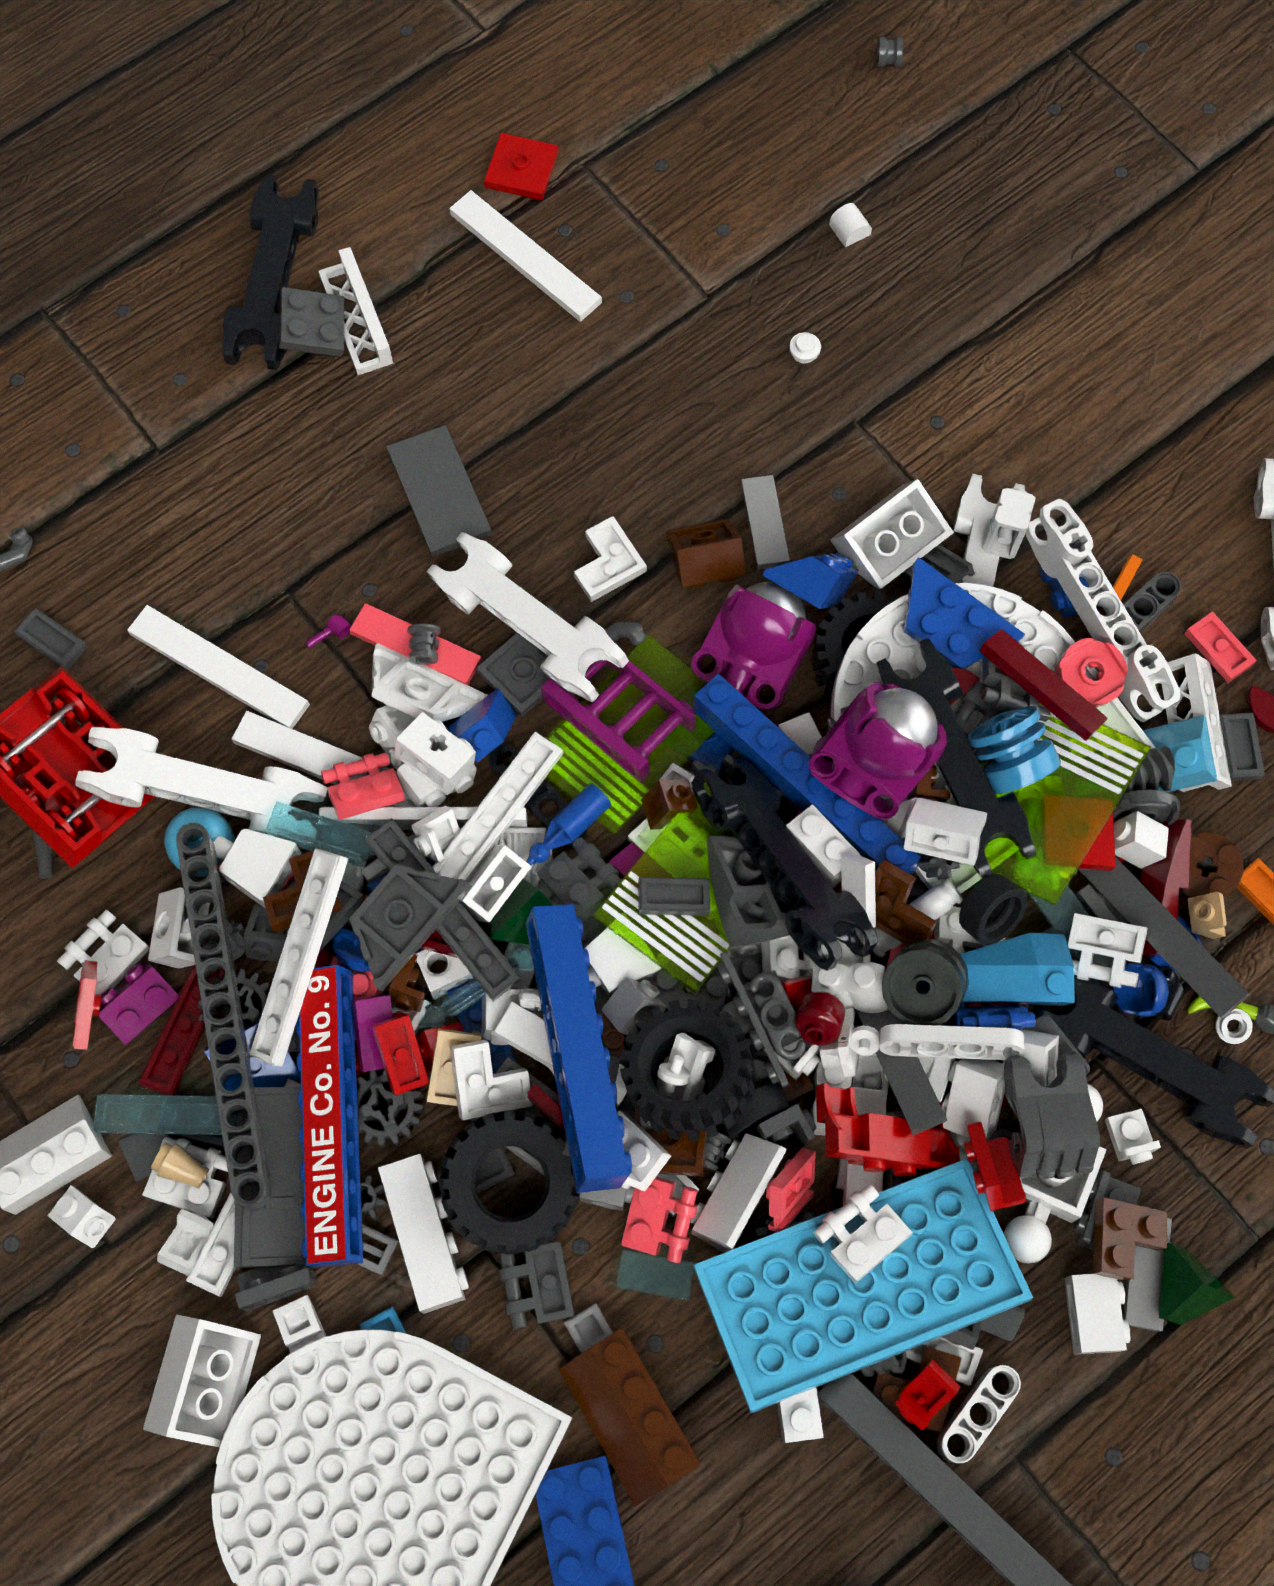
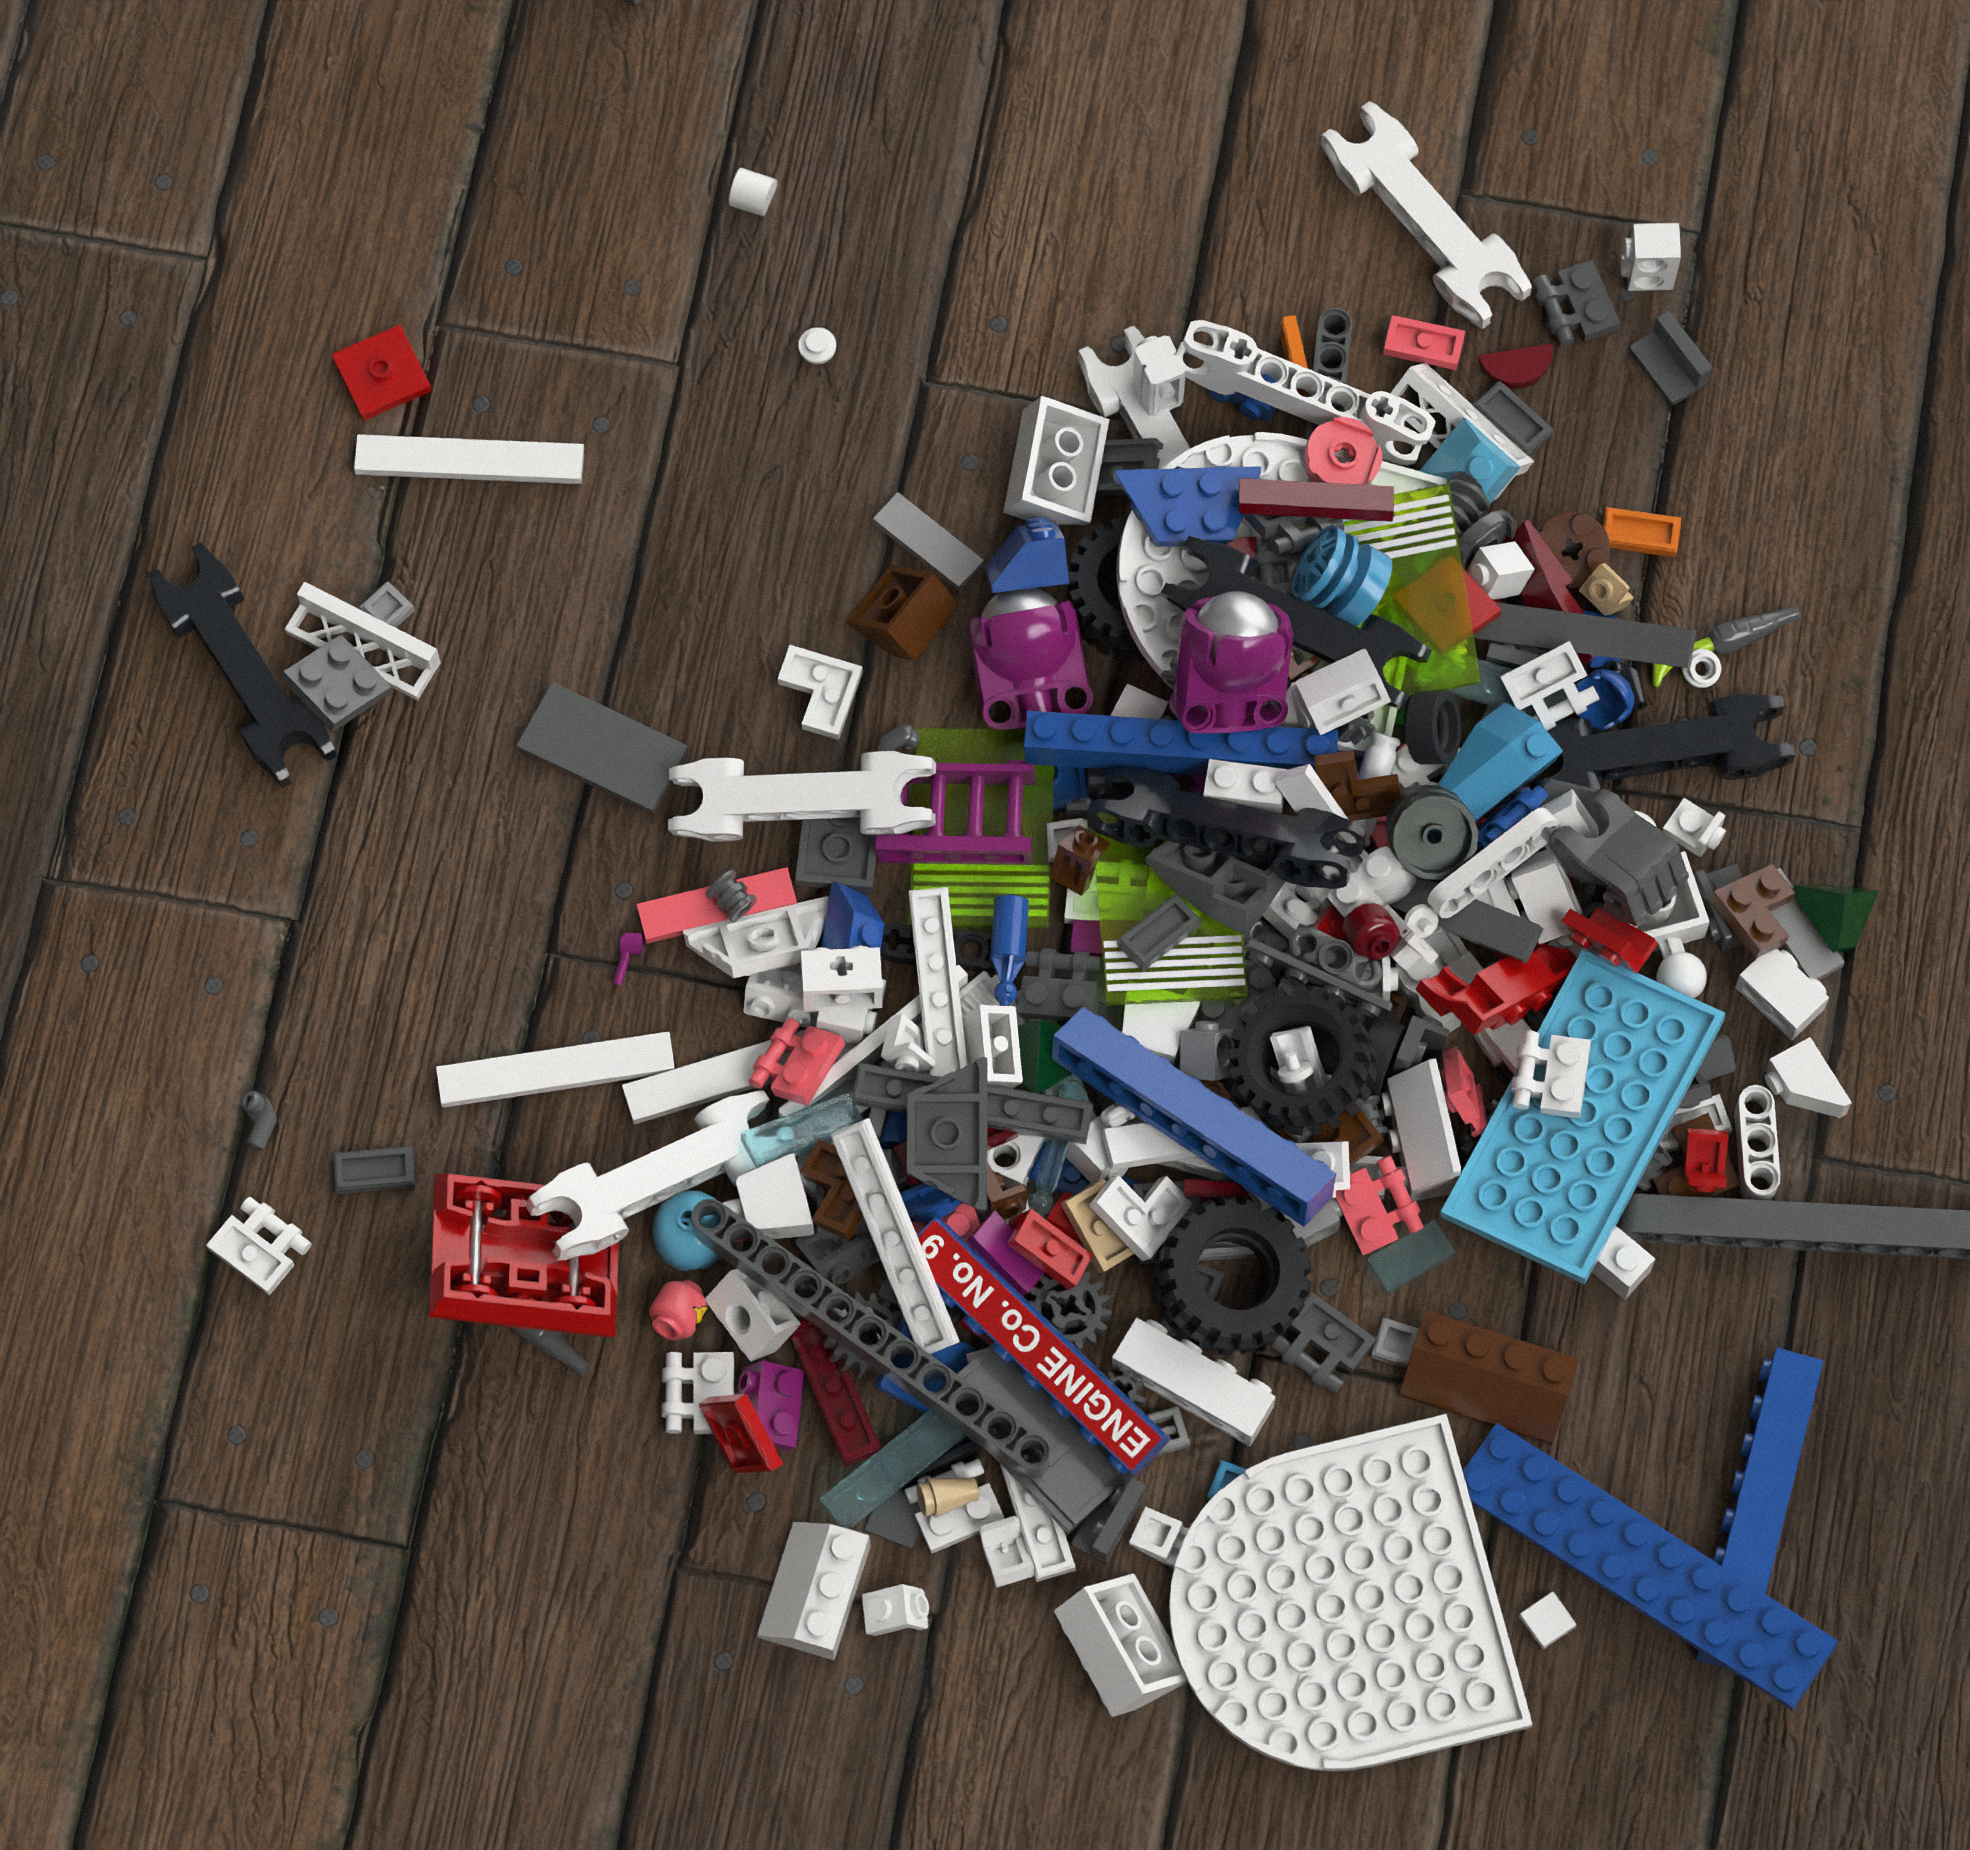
camera: 40 degrees left, 0 degrees up
(138, 886) = (678, 1309): none -> coral head
(391, 305) = (388, 605): none -> light grey tile
(1058, 1396) = (1806, 1080): none -> white slope

